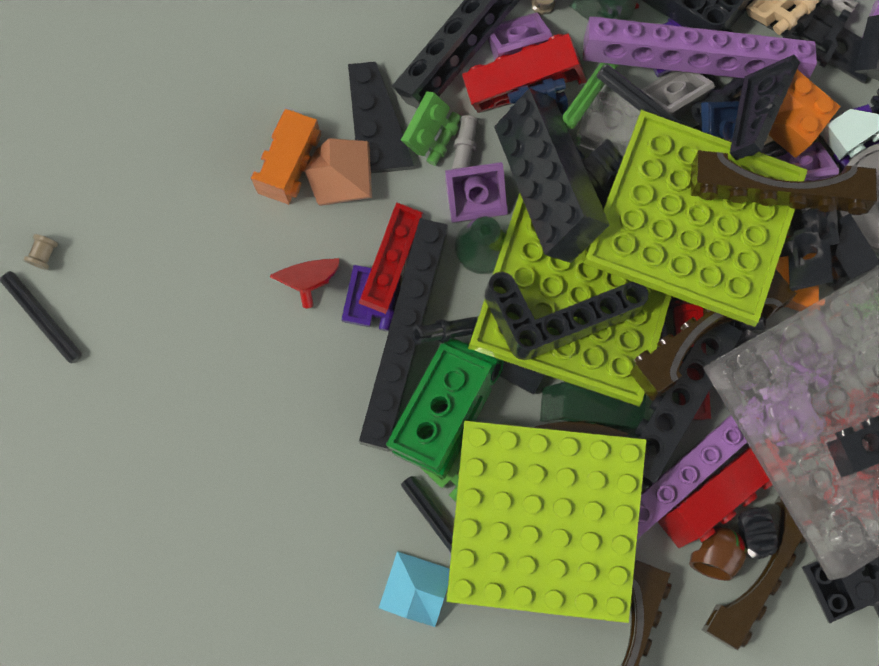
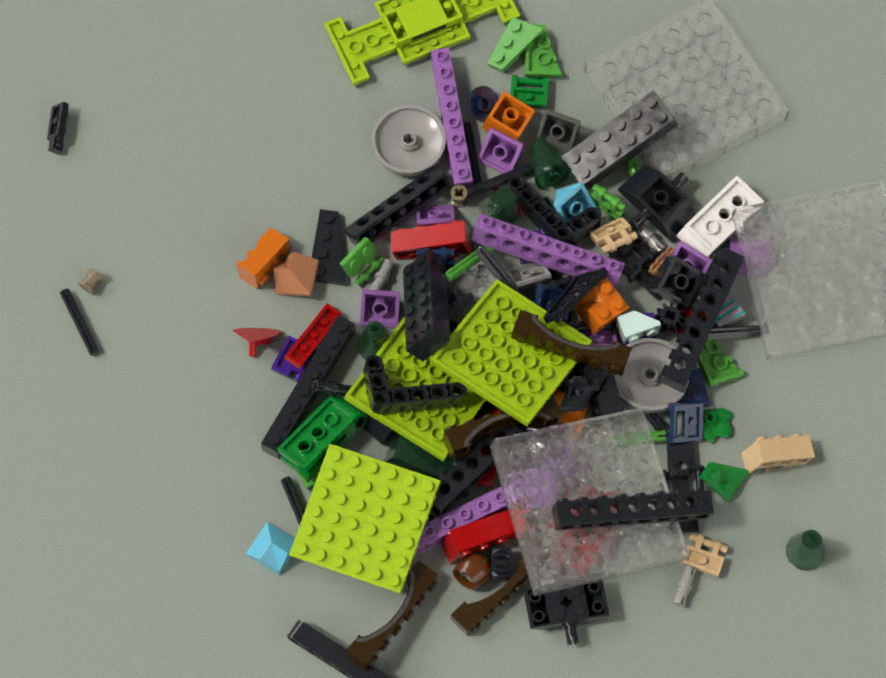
camera: 15 degrees right, 10 degrees down
(858, 25) = (658, 262): none -> medium nougat axle

